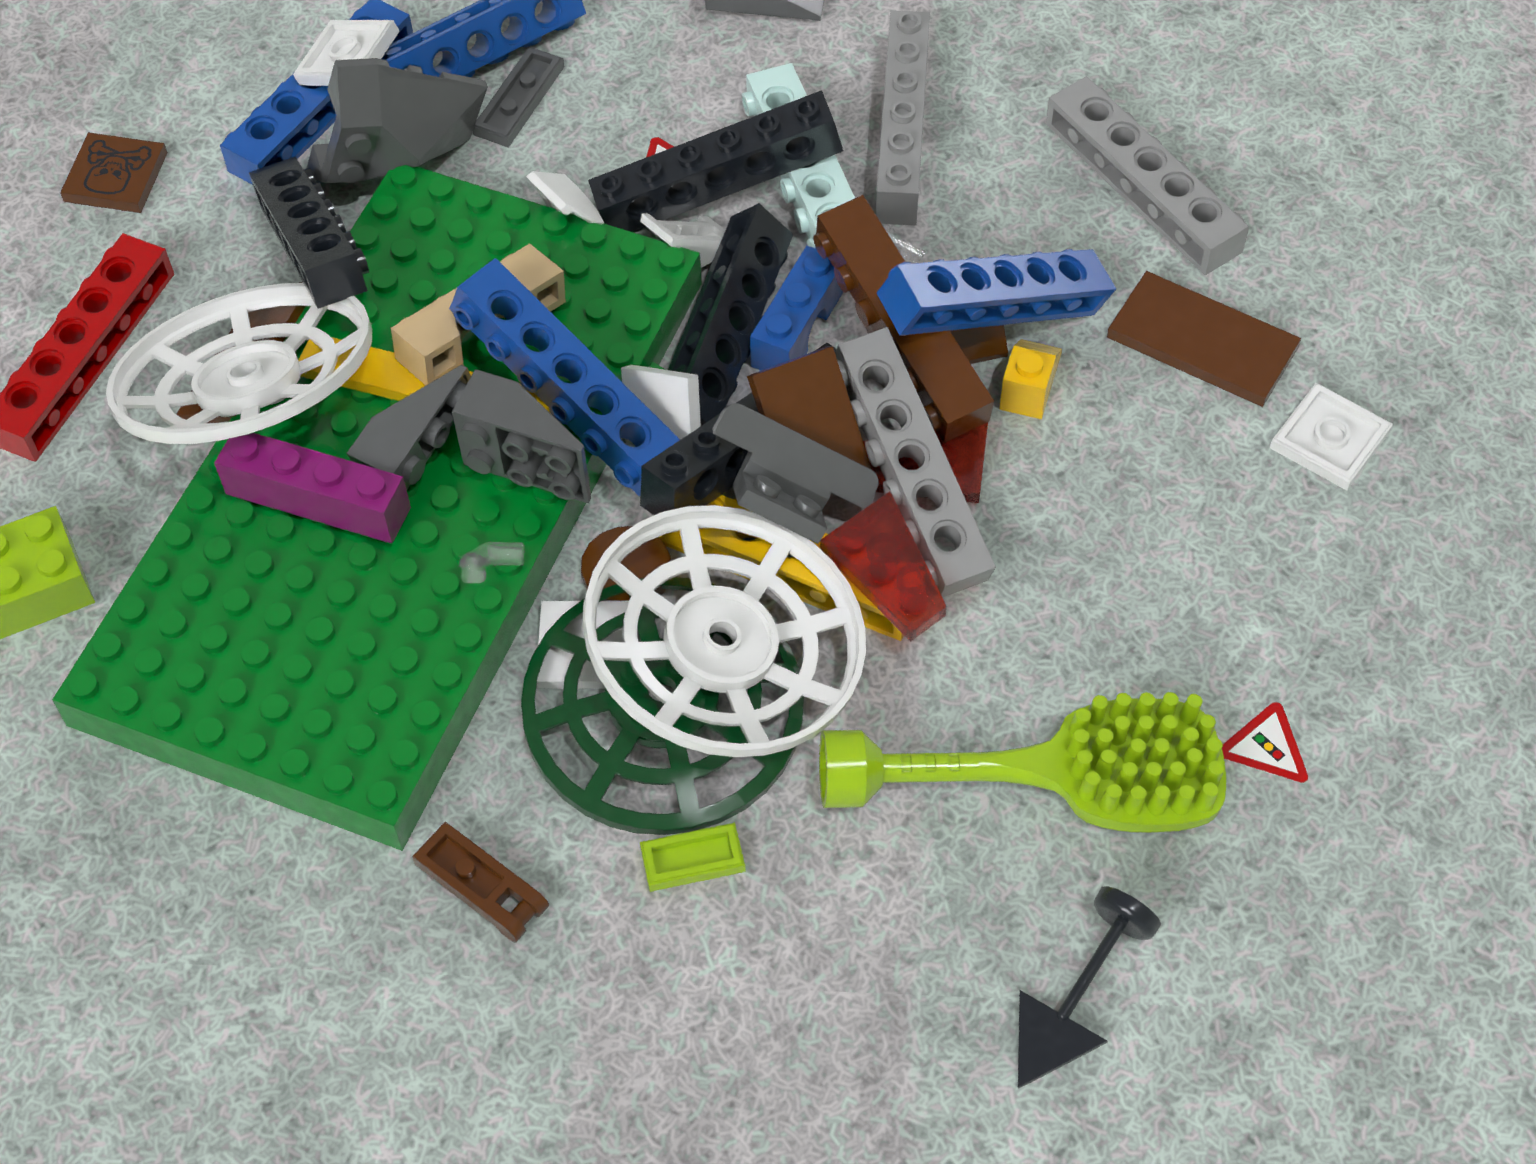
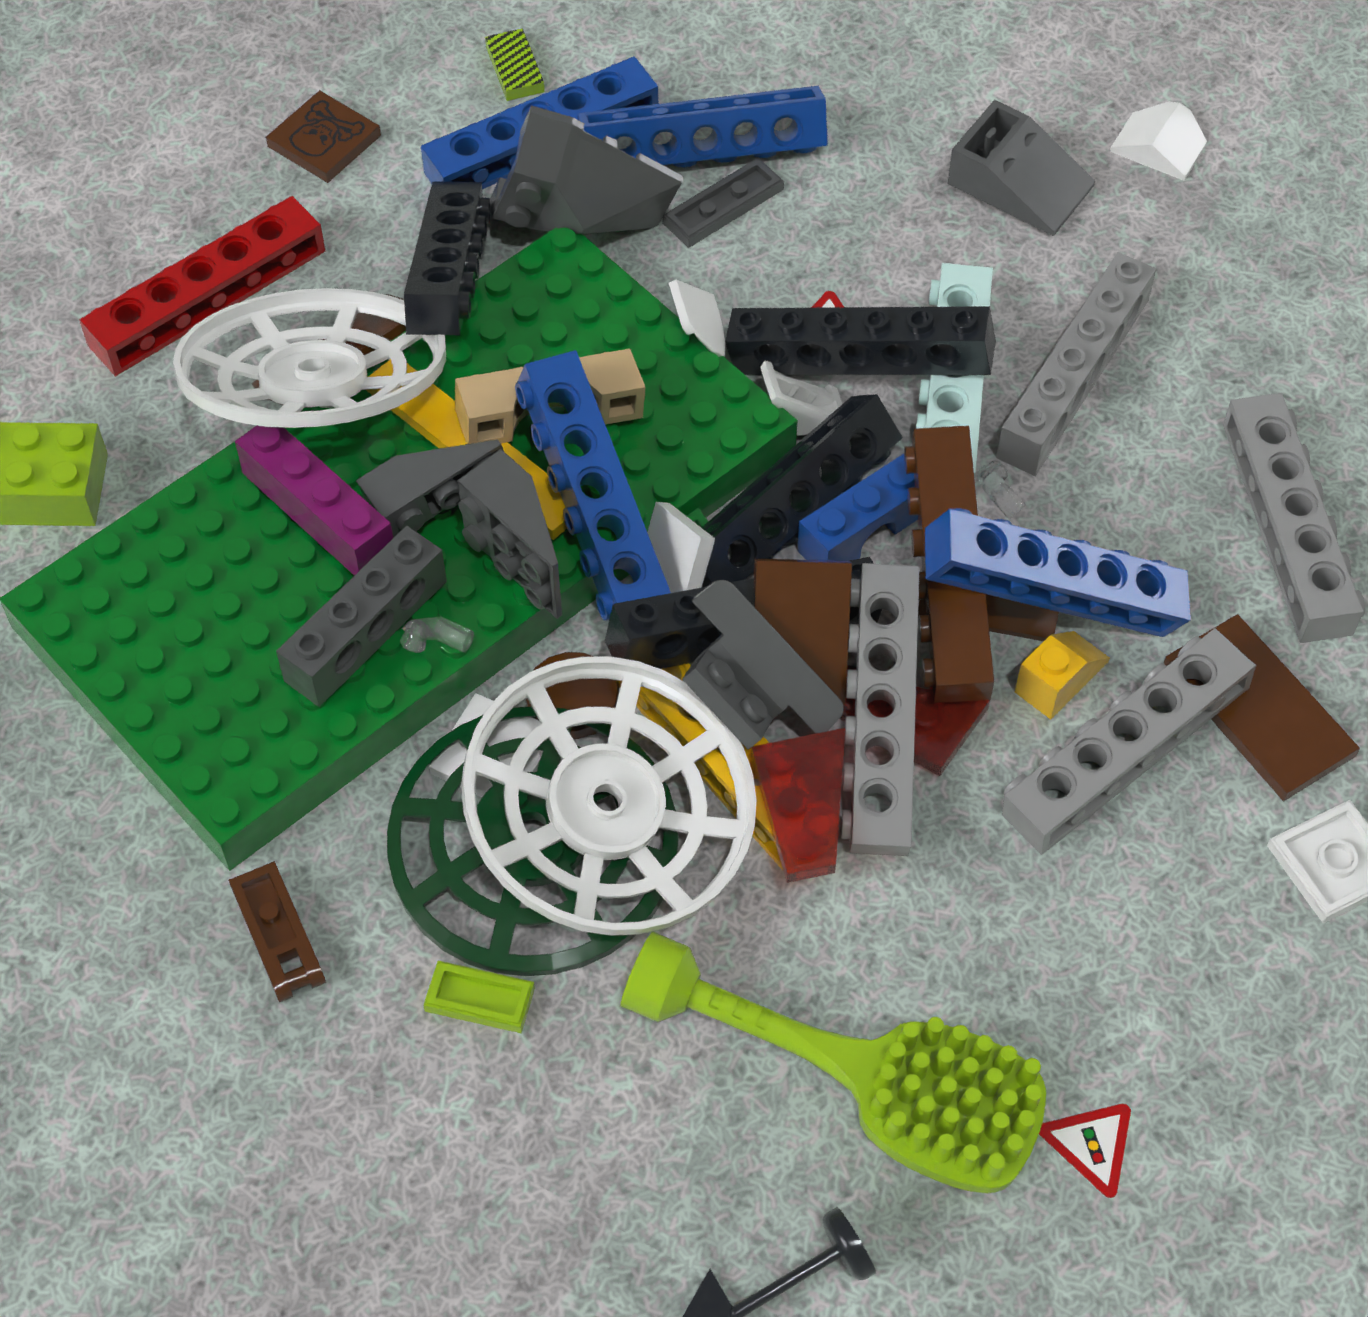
camera: 25 degrees right, 0 degrees up
(259, 45) = (514, 64): none -> tile
(342, 42) = (580, 95): white tile -> none
(417, 570) = (362, 616): none -> dark grey brick
(1086, 499) = (1048, 819): none -> light grey brick

